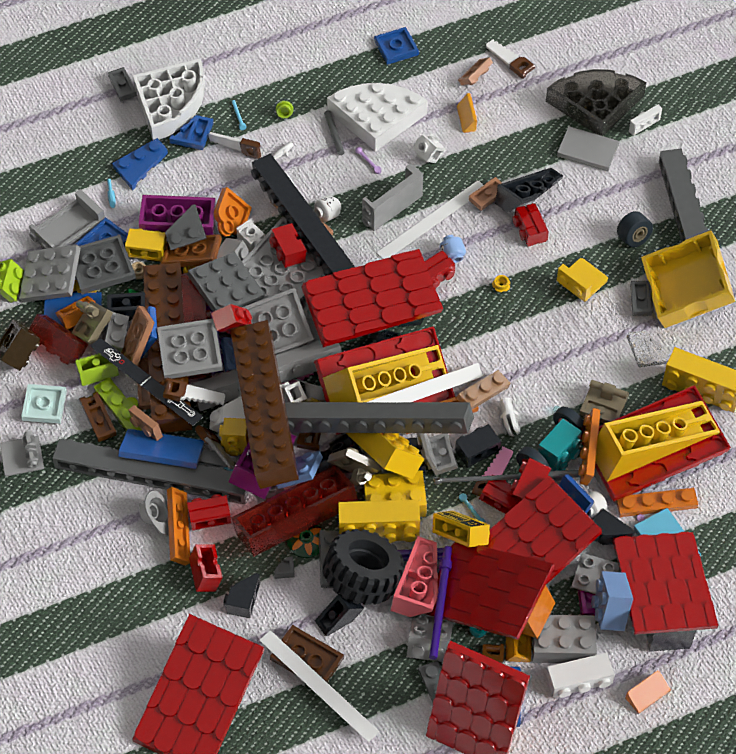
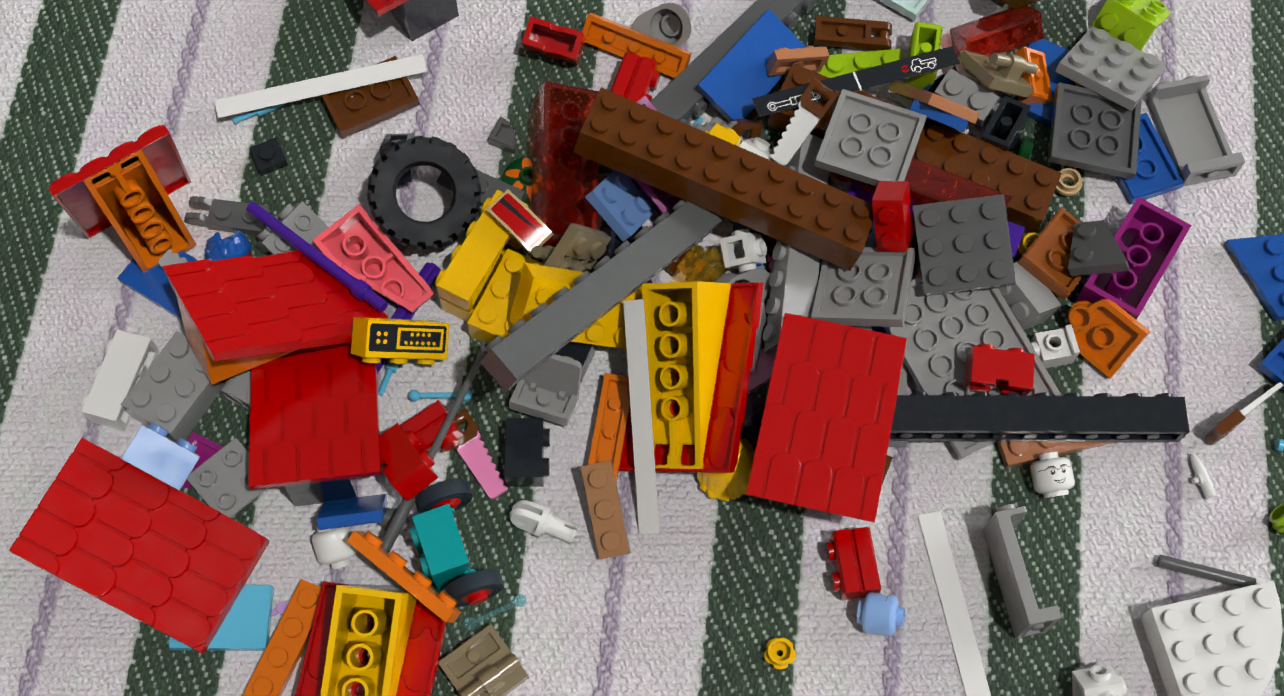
camera: 120 degrees right, 10 degrees up
(111, 194) = (1226, 211): medium azure piece -> none
(145, 244) = (1107, 199): yellow brick -> none
(242, 597) = (490, 66): black slope -> none
(354, 497) = (519, 221): none -> slope
(377, 170) = (1099, 597): lavender hinge -> none
(384, 692) = (268, 156): none -> black plate
(611, 528) = (285, 545): black slope -> none
(647, 692) = (43, 451): slope -> none

